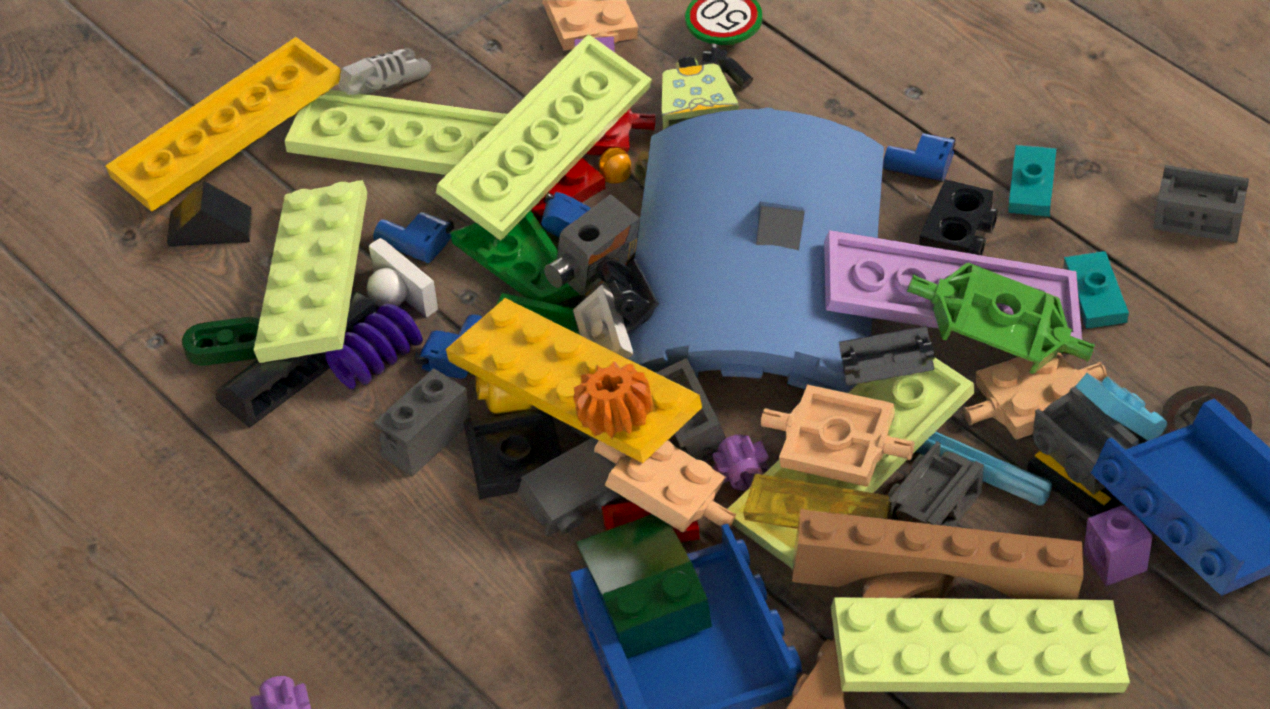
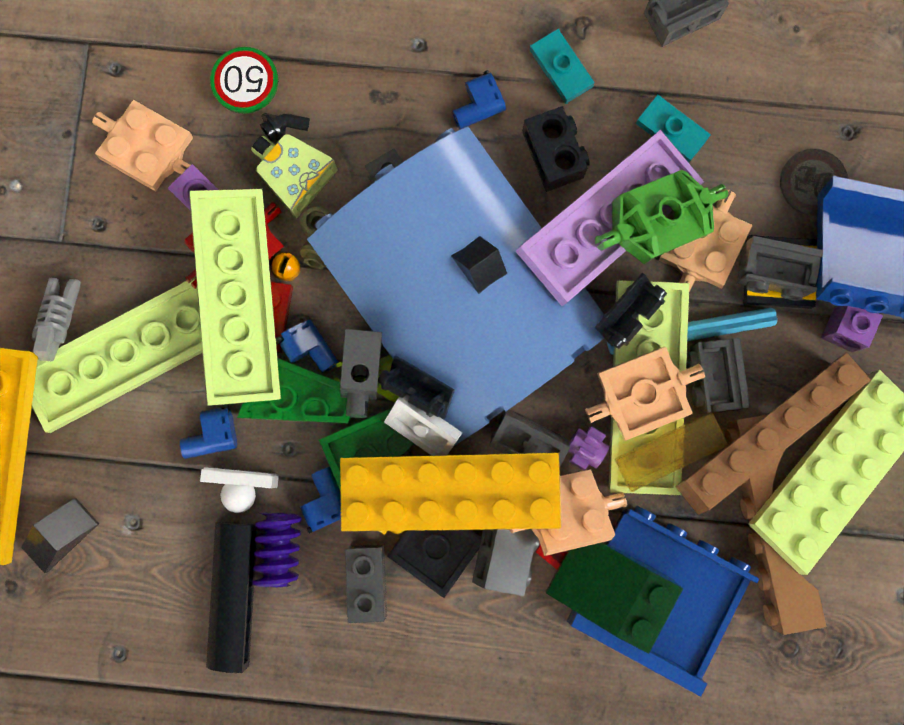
camera: 45 degrees left, 35 degrees up
(221, 341) = (173, 622): dark green plate -> none
(311, 272) = (180, 530): yellowish green plate -> none
(613, 399) = (527, 527): orange gear -> none
(1122, 406) = (785, 228): medium azure plate -> none

